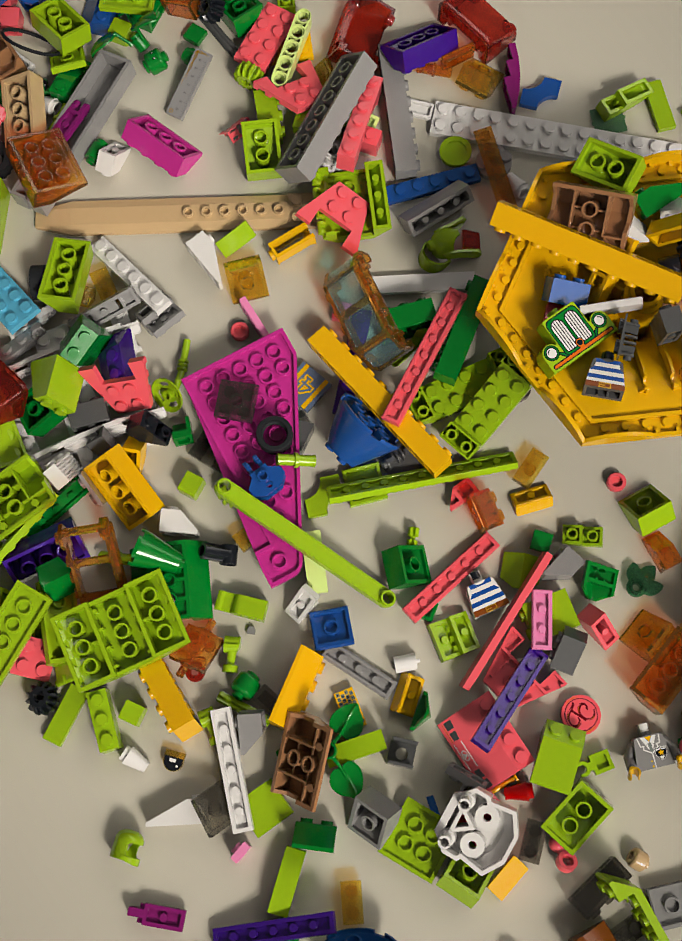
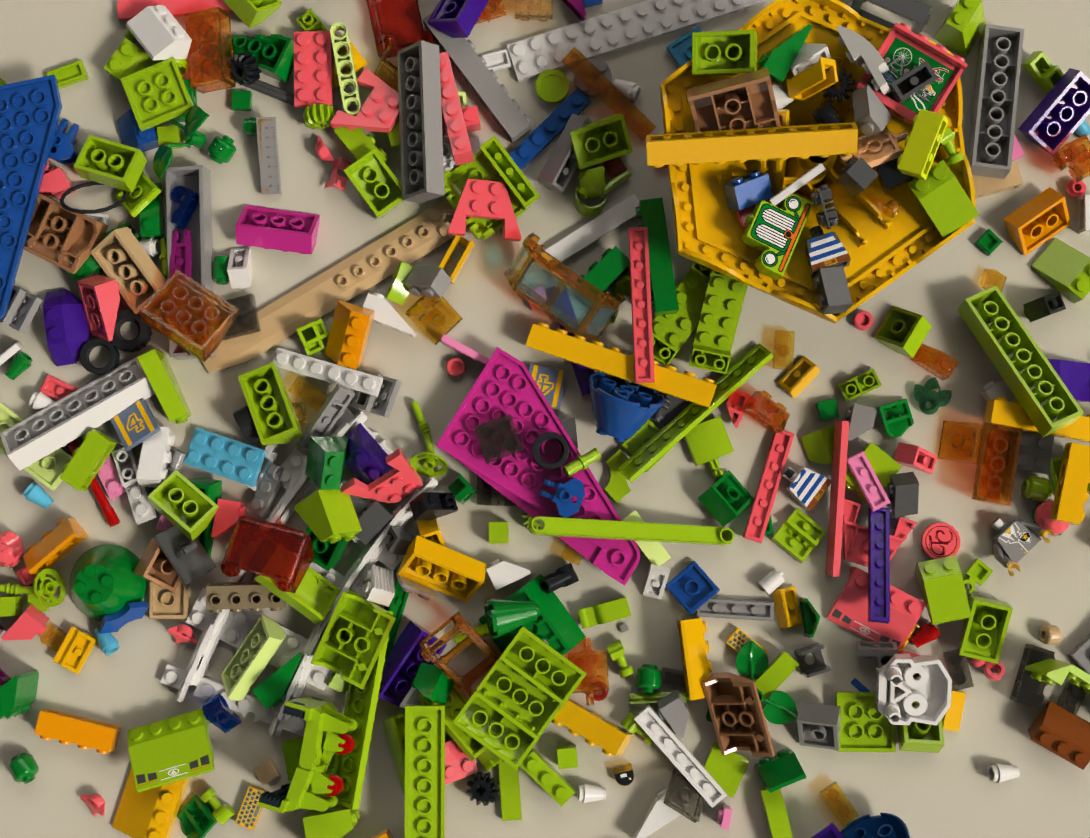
camera: 30 degrees left, 10 degrees up
(89, 198) = (247, 319): none -> clear smoke plate
(98, 87) = (186, 206): none -> clear blue plate
(135, 241) = (312, 335): none -> lime brick
(167, 255) = (349, 334): none -> light orange slope
(235, 104) = (322, 151): none -> coral piece
(257, 246) = (427, 281): none -> light grey brick
(419, 509) = (708, 441): none -> lime slope
(467, 210) = (601, 141): none -> lime slope
(593, 410) = (832, 290): none -> dark grey brick

